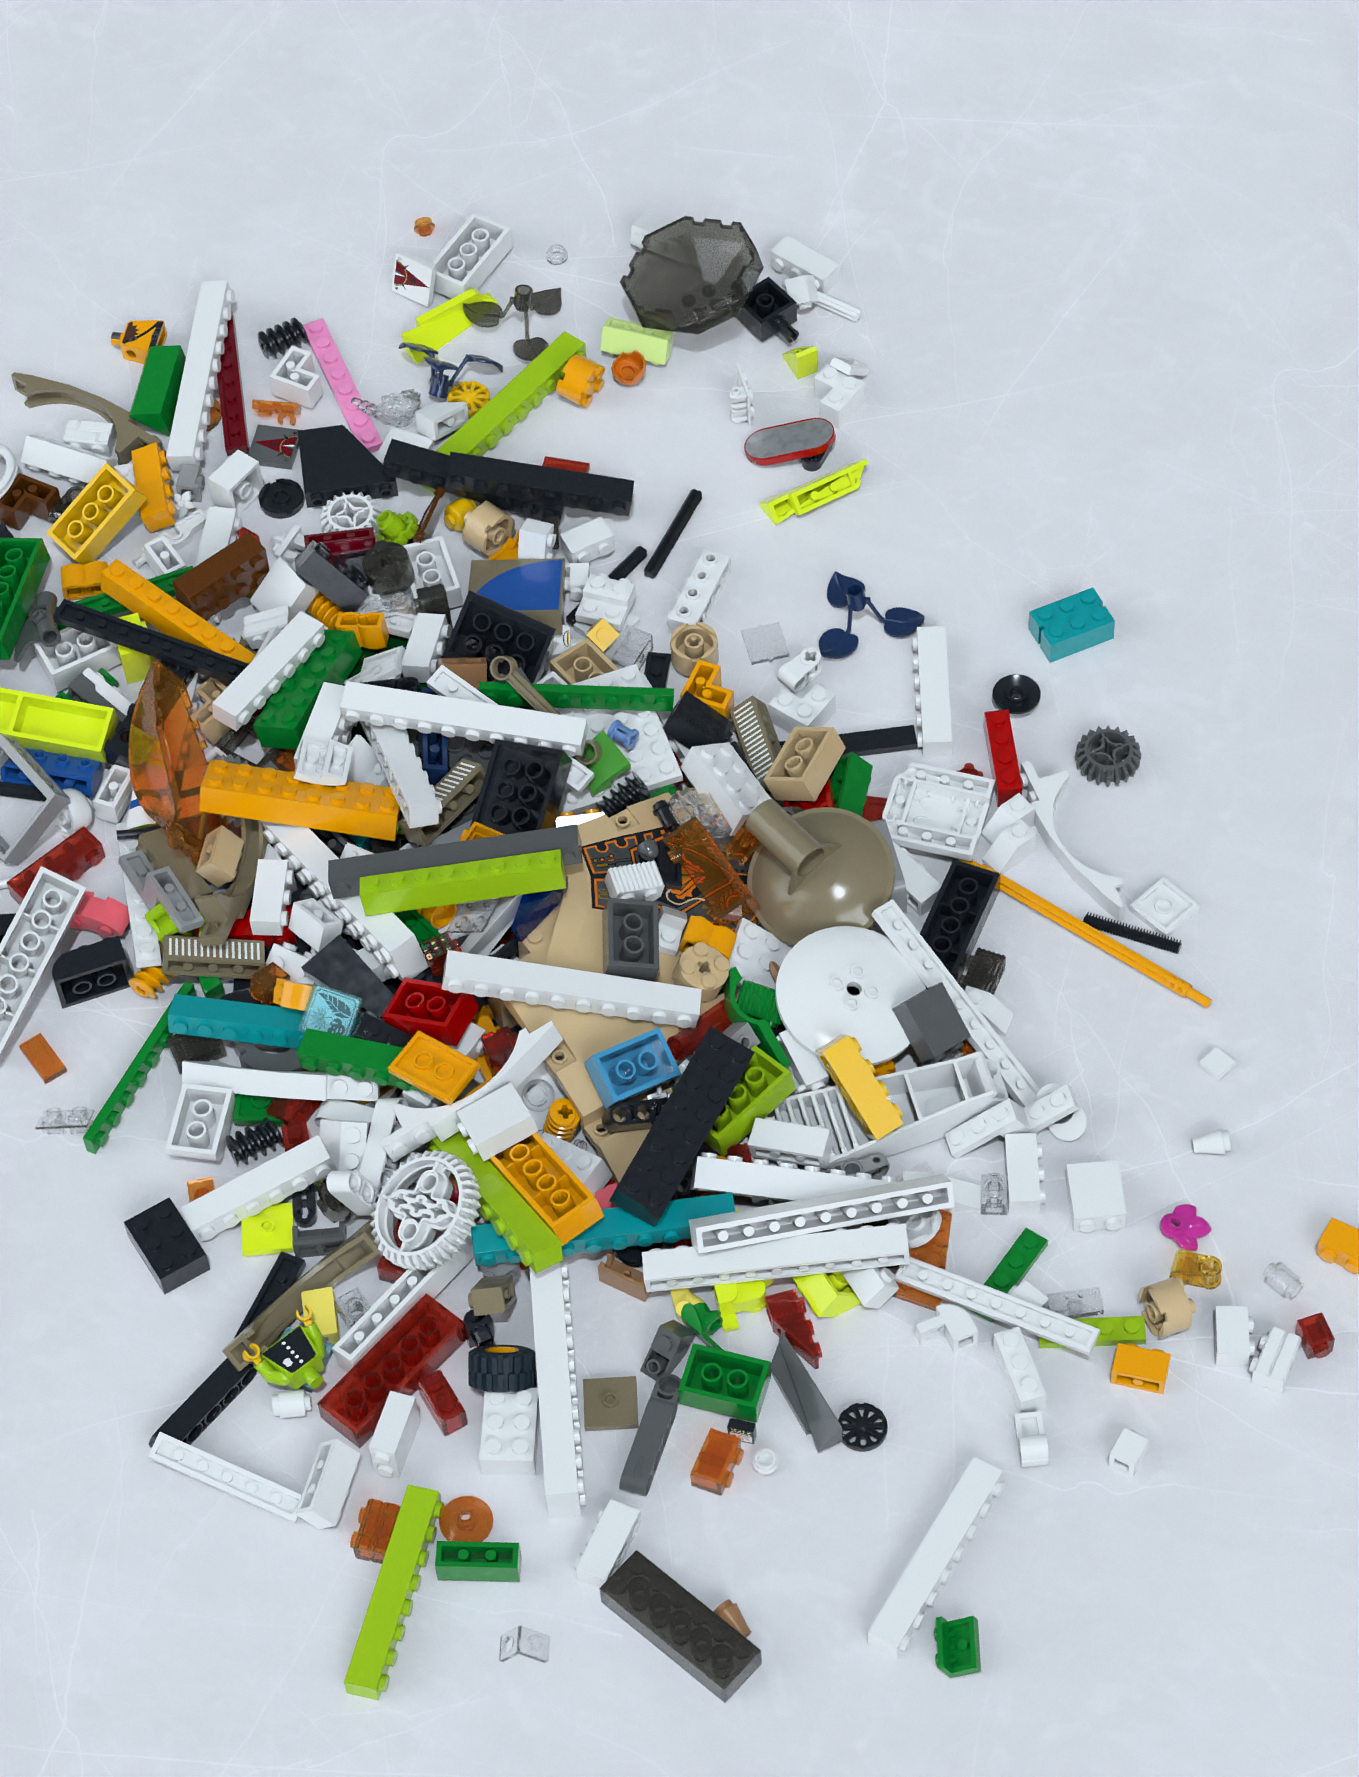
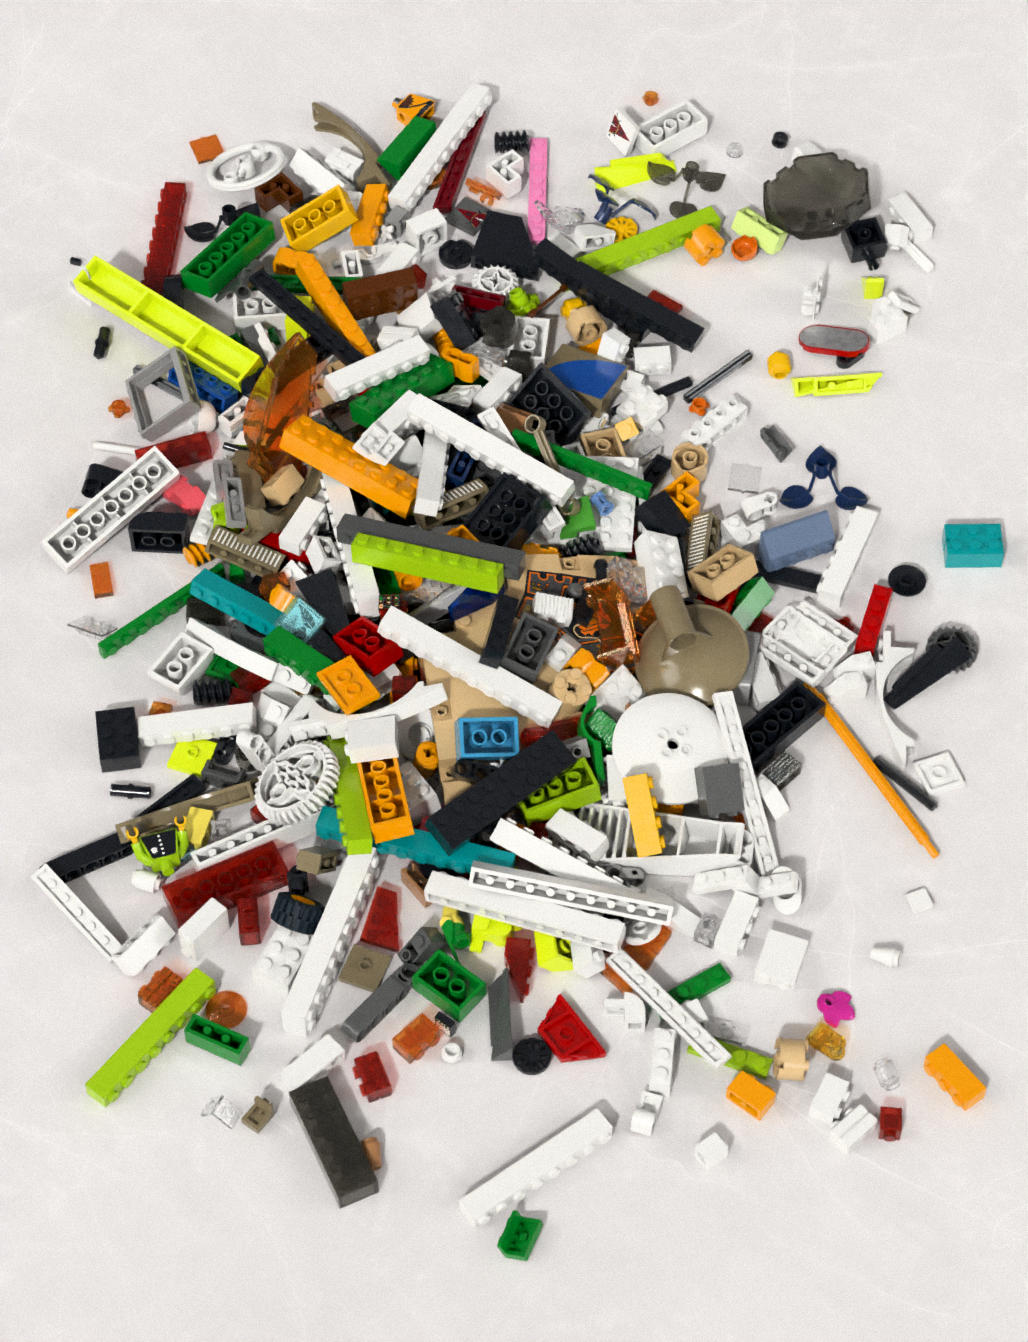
camera: 20 degrees right, 0 degrees up
(213, 1303) = (130, 791): none -> black pin
(573, 1630) = (258, 1114): none -> dark tan bracket
(588, 932) = (498, 631): none -> black brick
(602, 1340) = (381, 922): none -> clear red wing
(607, 219) = (779, 140): none -> black bush
(668, 577) = (699, 406): none -> orange plate
(686, 1529) = (372, 1077): none -> clear red brick
(739, 493) = (779, 365): none -> yellow head
(782, 587) = (776, 442): none -> dark grey hinge
(868, 695) = (796, 541): none -> sand blue slope
(892, 1383) = (568, 1035): none -> red wing
(1096, 791) = (927, 671): none -> black wedge

